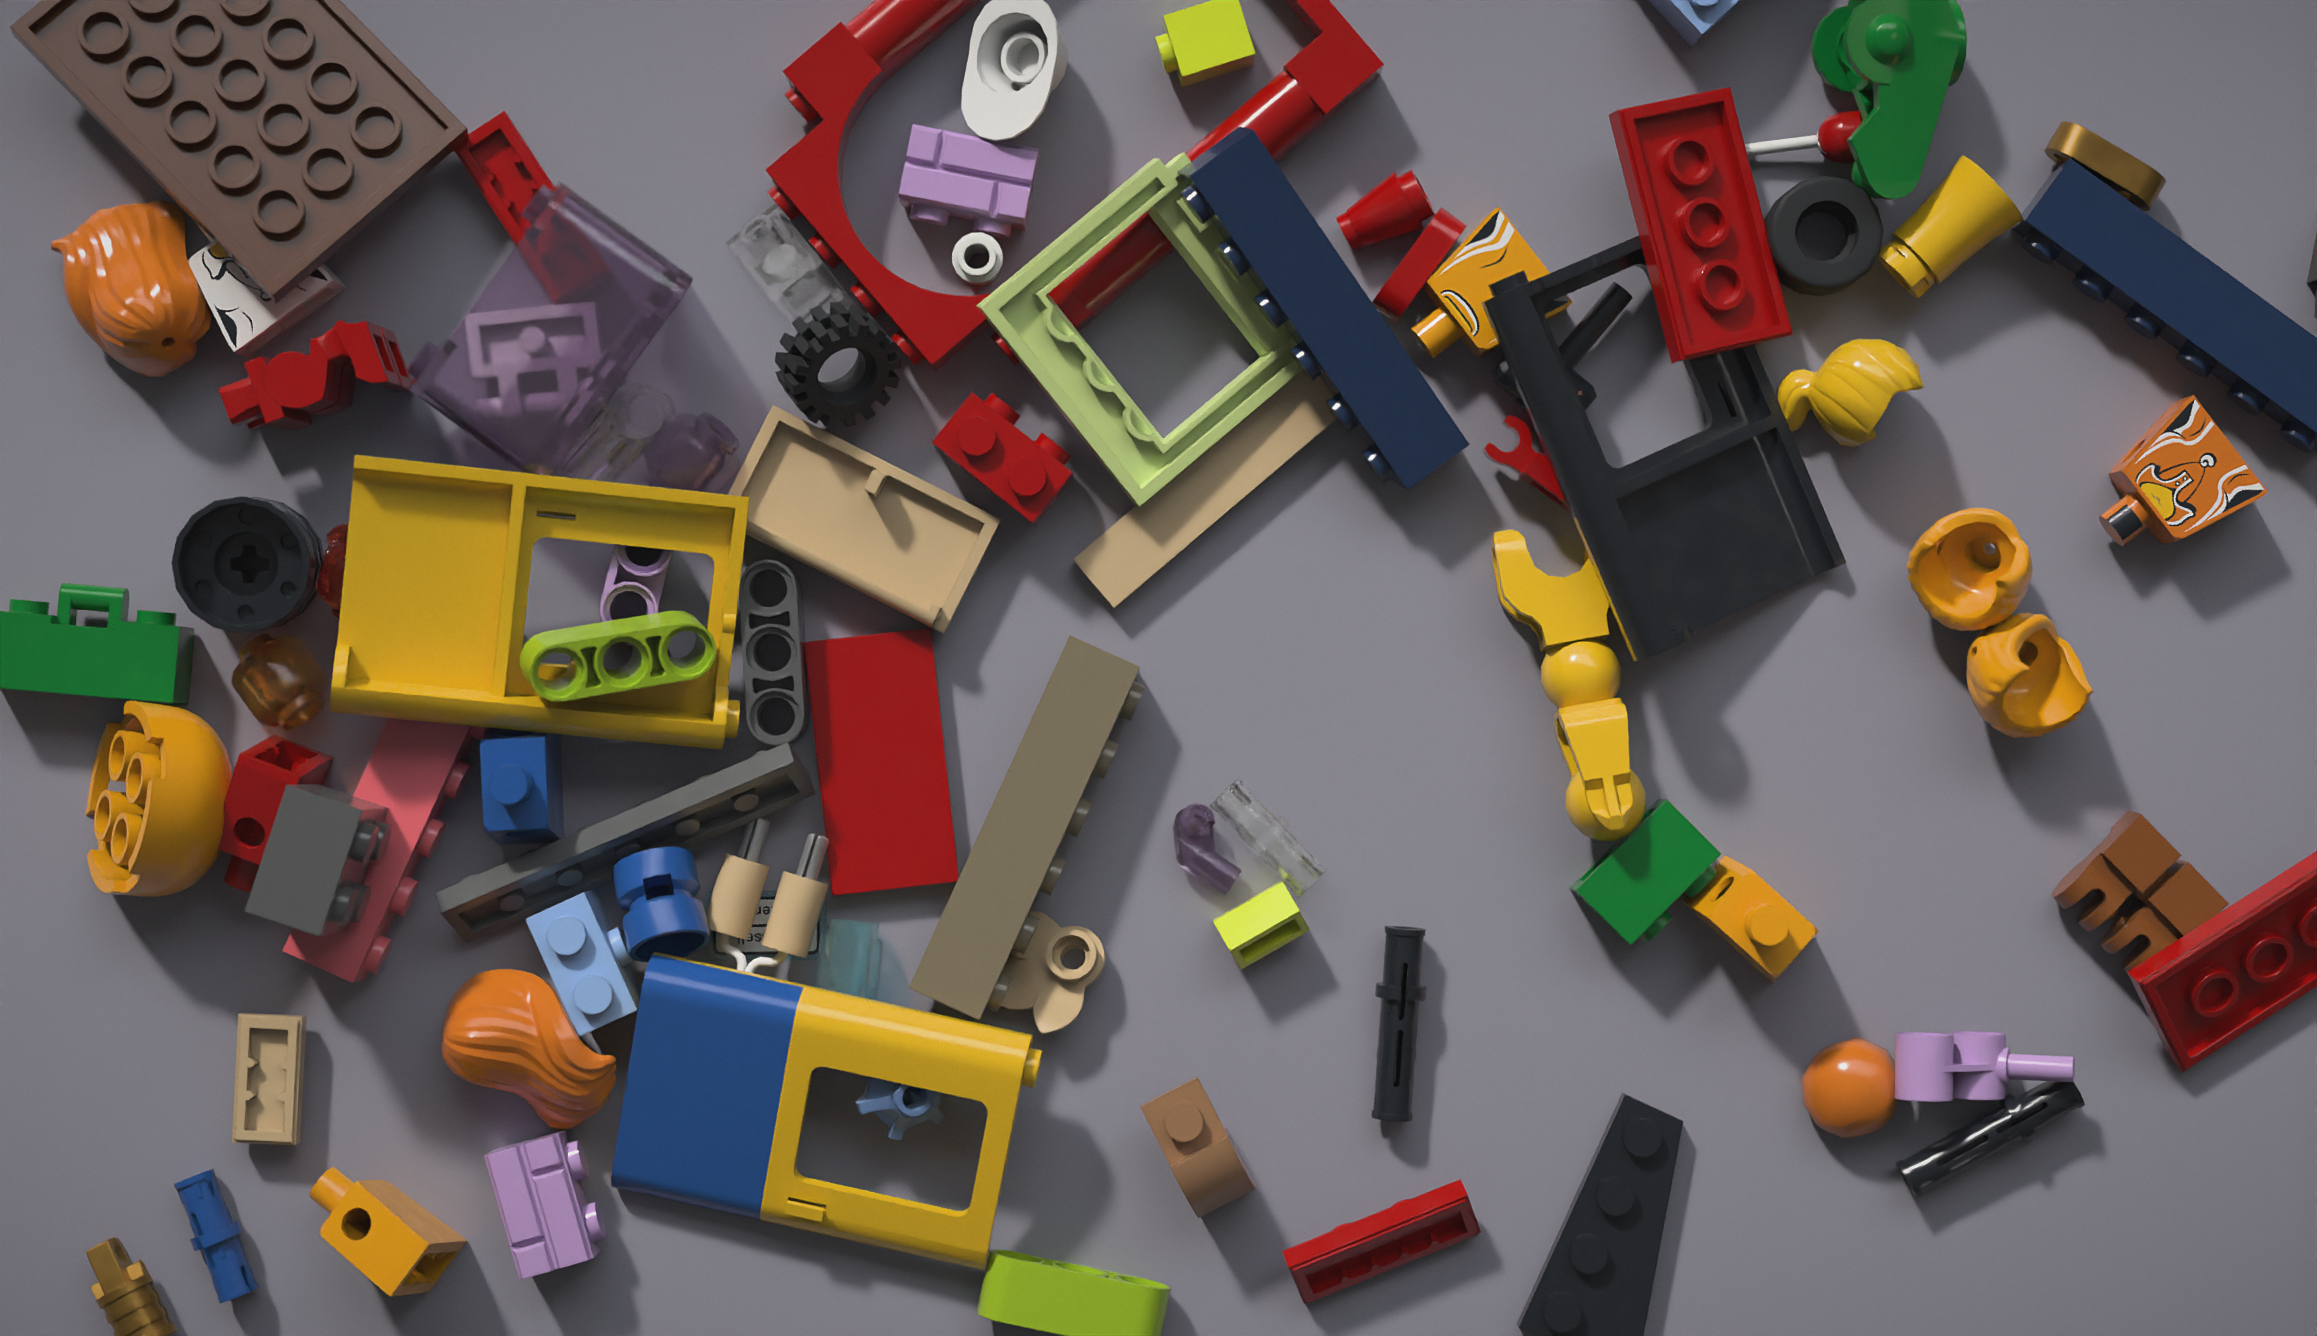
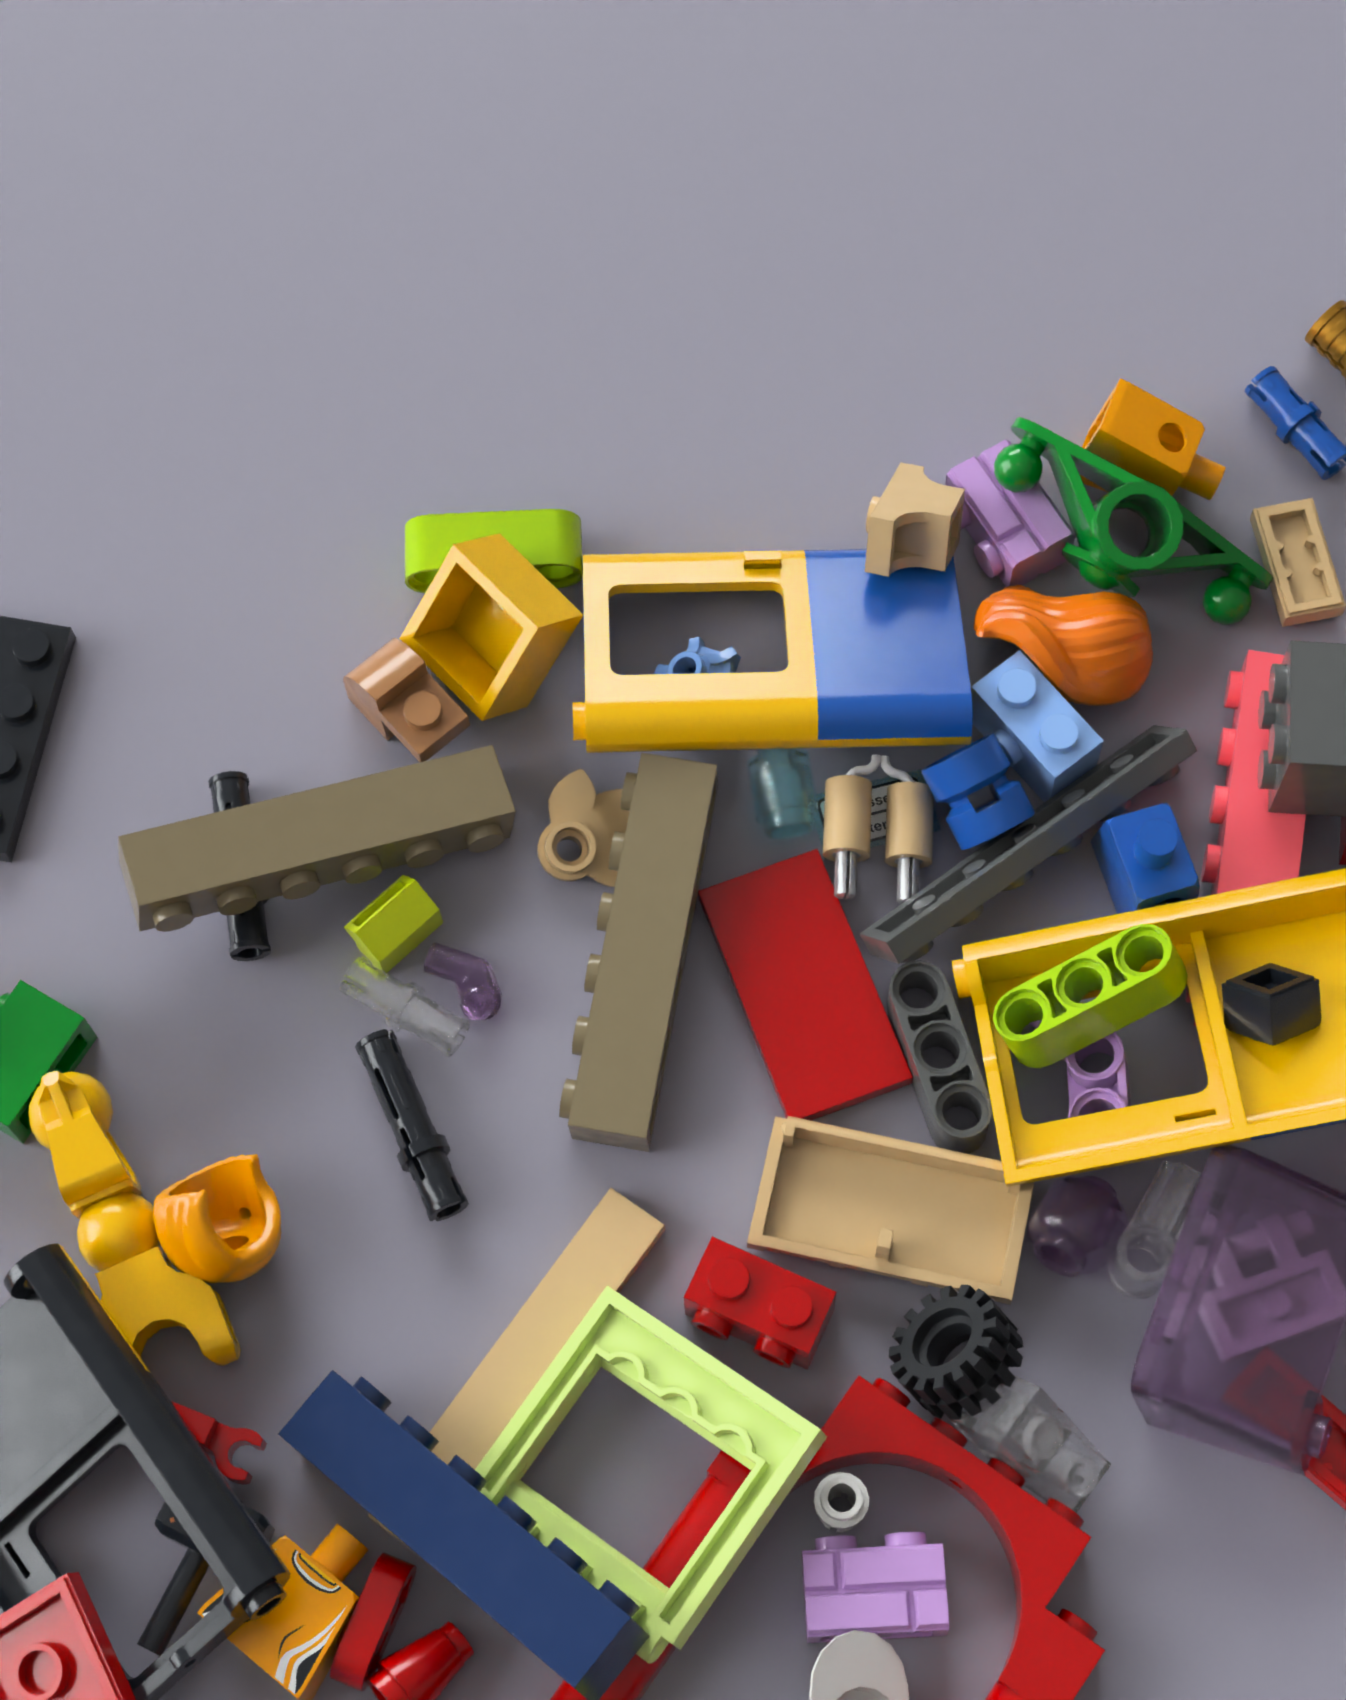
camera: 170 degrees right, 20 degrees down
(424, 1174) = (1167, 521): none -> green piece
(452, 597) = (1271, 1003): none -> black slope
(643, 1208) = (913, 523): none -> tan brick
(1095, 1200) = (490, 626): none -> yellow piece
(1287, 717) = (420, 1146): none -> black pin
(1315, 1017) = (315, 839): none -> dark tan brick
(1382, 1241) = (231, 657): red plate -> none
(1484, 660) = (219, 1221): none -> light orange piece

